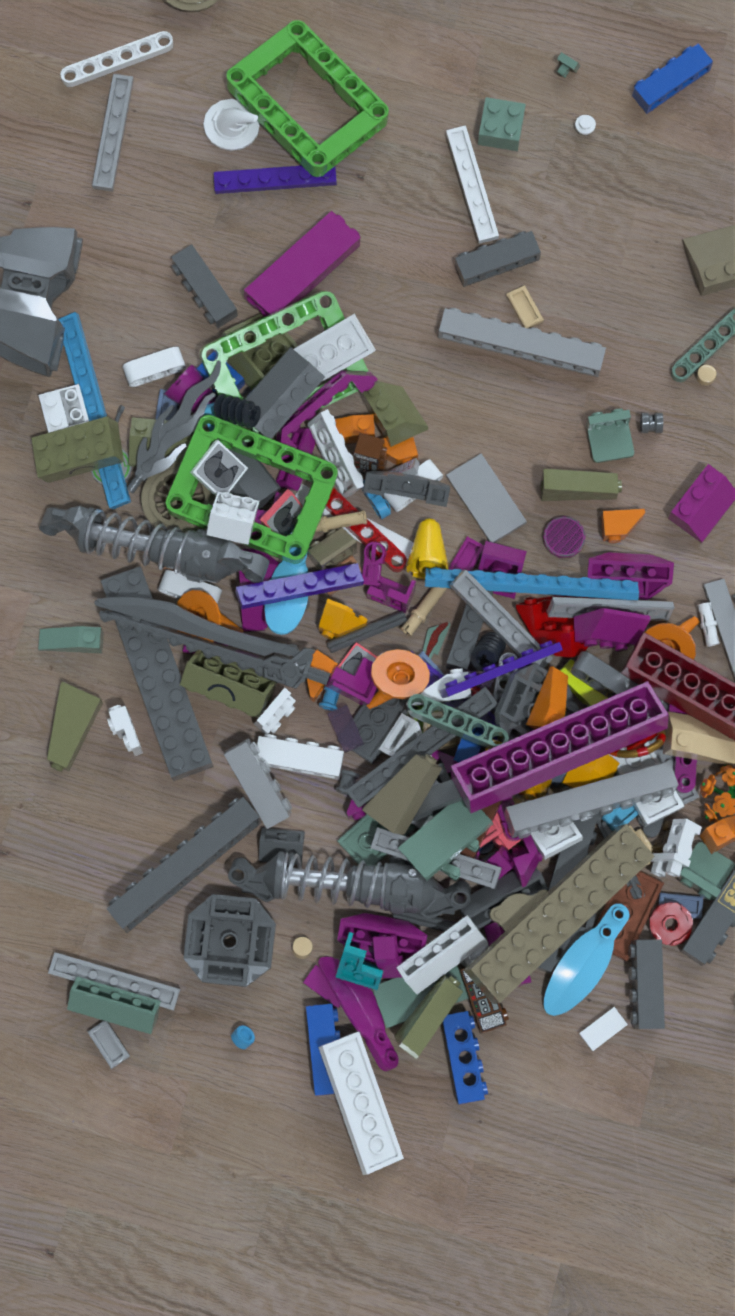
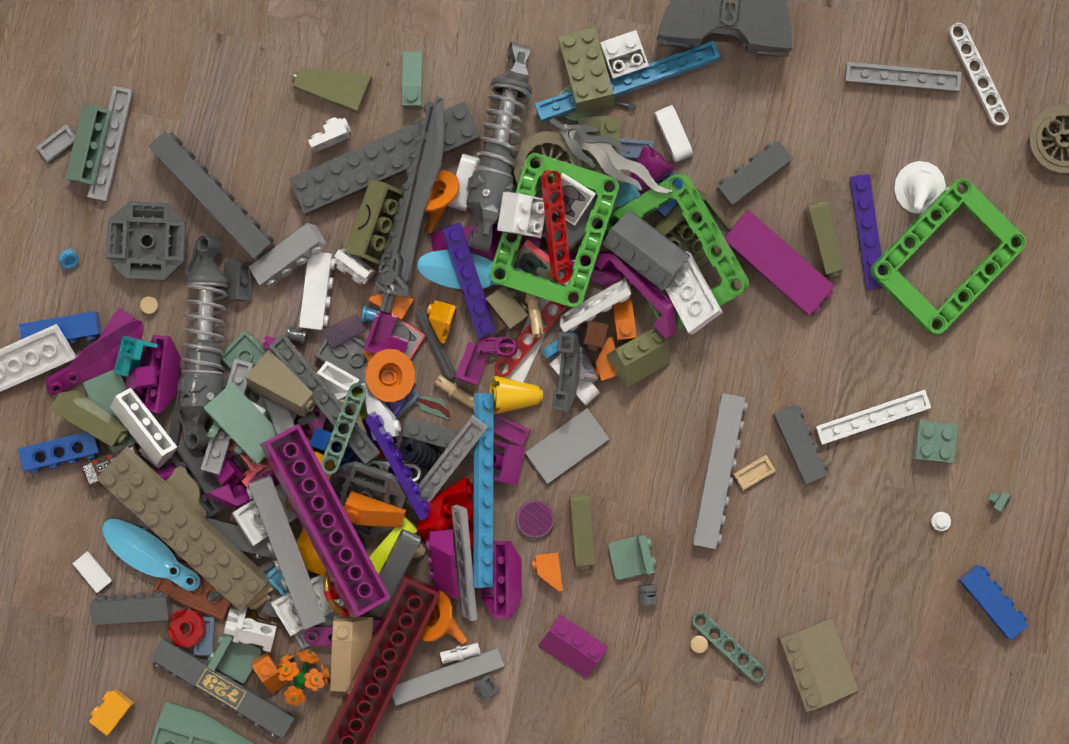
camera: 85 degrees right, 10 degrees up
(237, 410) = (624, 210): black piece -> none
(248, 486) = (559, 225): none -> red beam
(278, 218) = (824, 238): none -> olive slope

